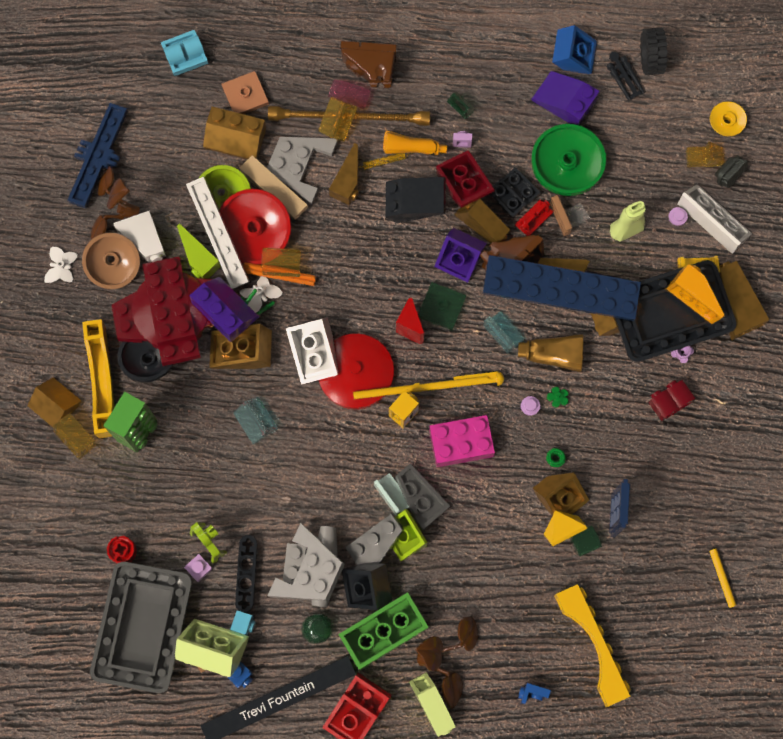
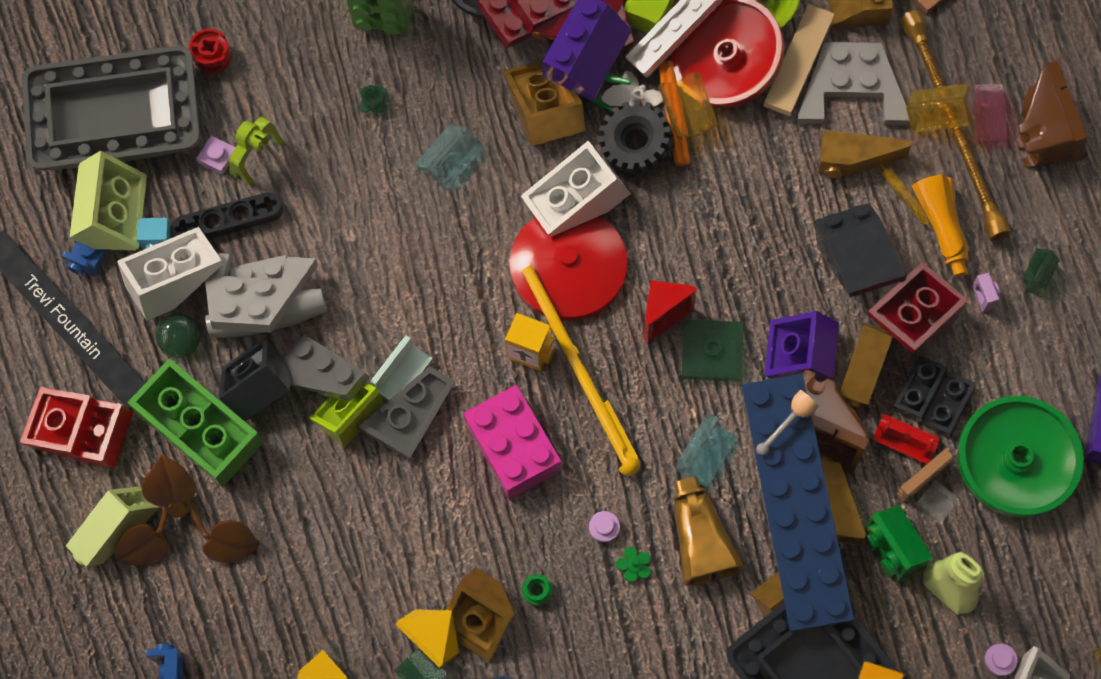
camera: 75 degrees right, 5 degrees down
(197, 450) = (370, 92): none -> clear green plate
(275, 619) = (168, 272): none -> white slope
(284, 288) = (632, 120): none -> black tyre
(512, 261) = (802, 406): none -> hinge
(597, 245) = (896, 543): none -> green slope

